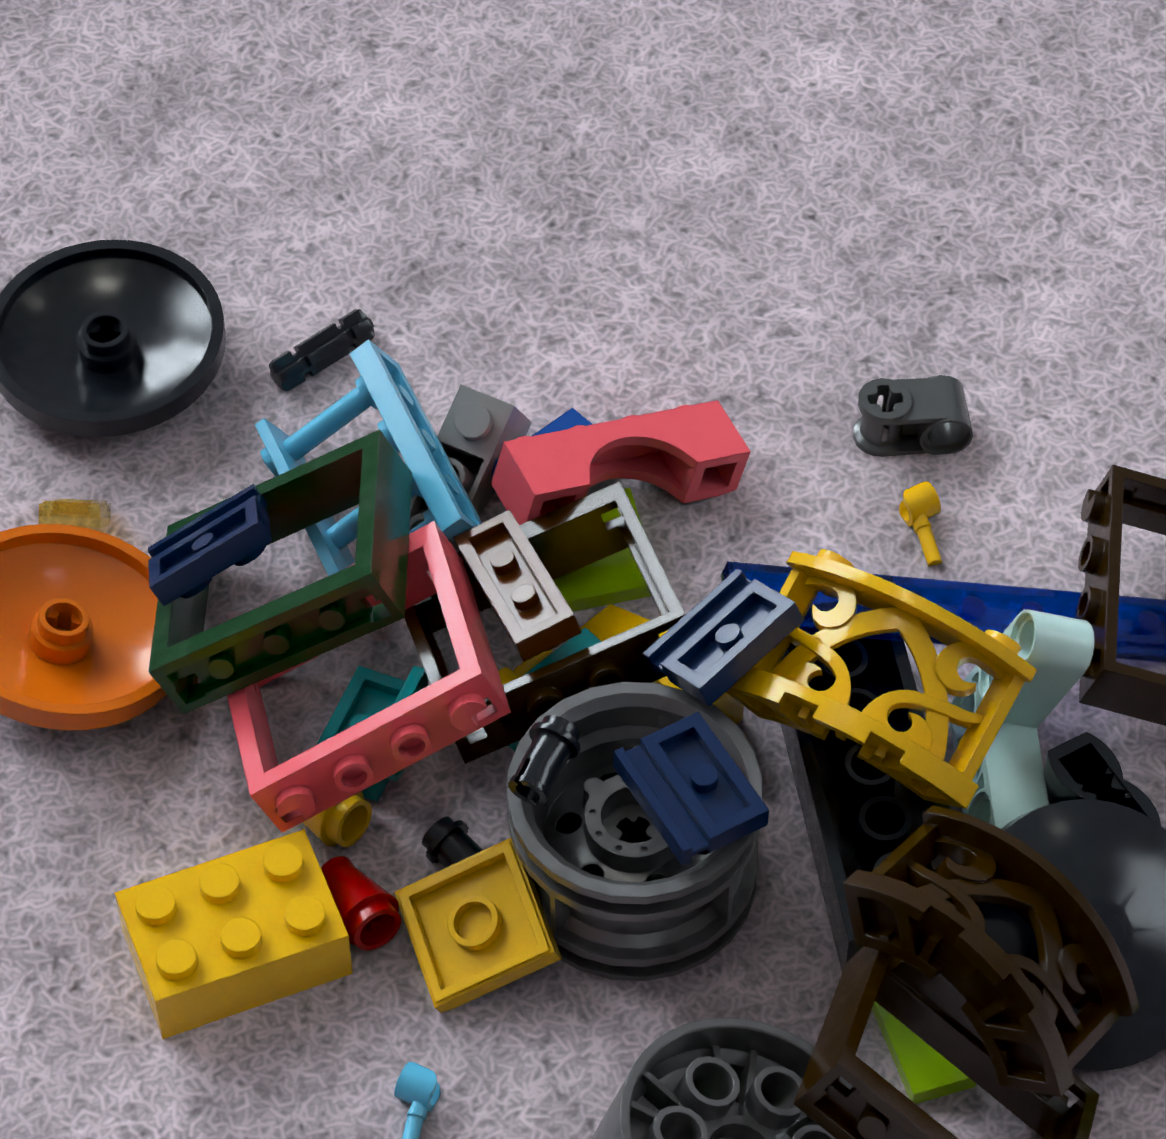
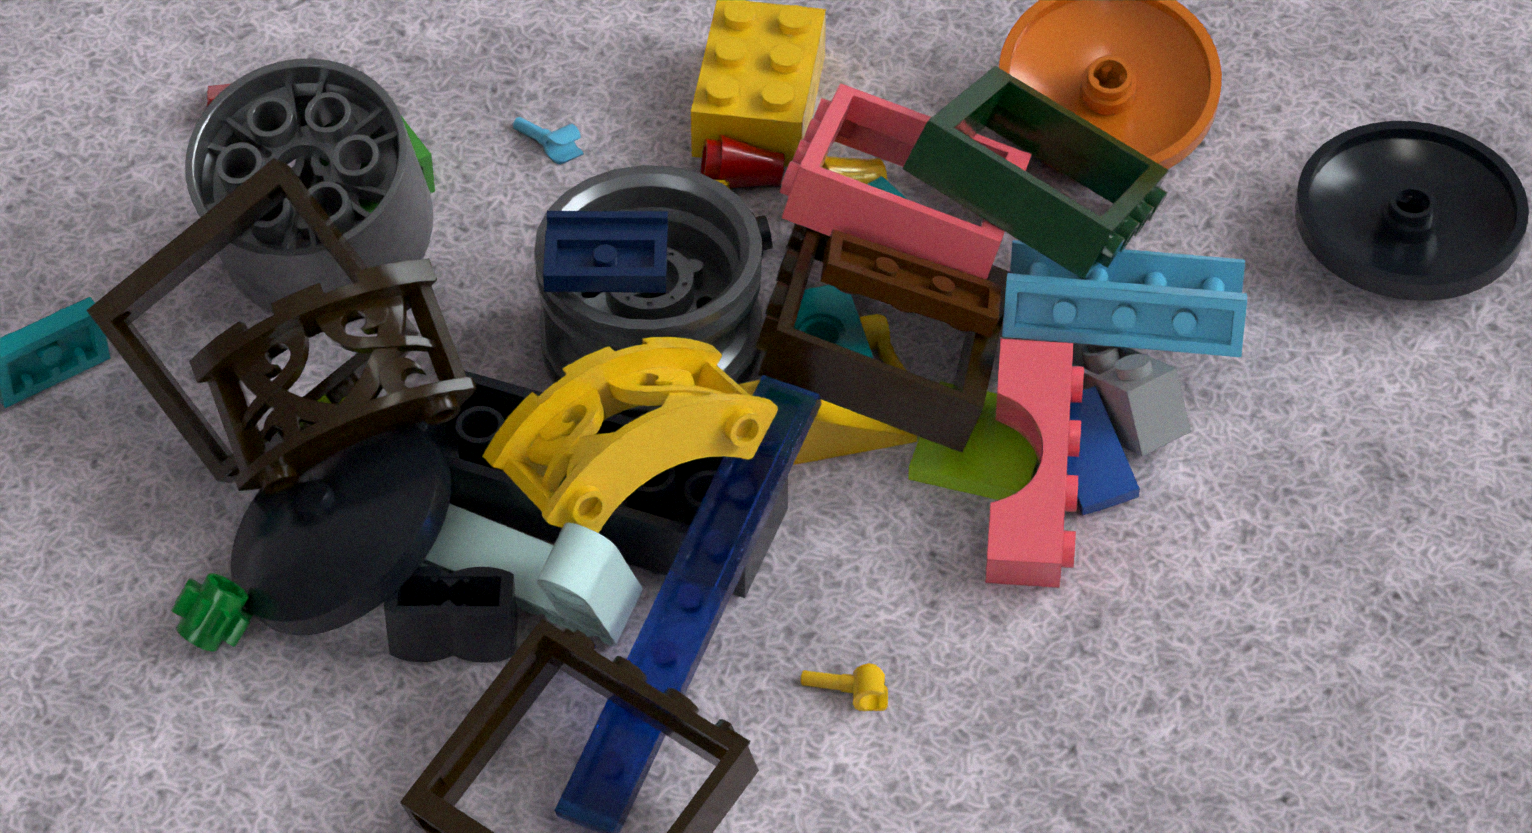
camera: 120 degrees right, 5 degrees down
(75, 512) = (1233, 140): clear yellow tile -> none
(208, 545) = (1083, 128): dark blue plate -> none
(321, 350) = (1328, 365): black axle -> none
(551, 746) = (709, 192): black pin -> none
(723, 637) = (731, 336): dark blue plate -> none
(919, 416) = (964, 721): dark grey piece -> none

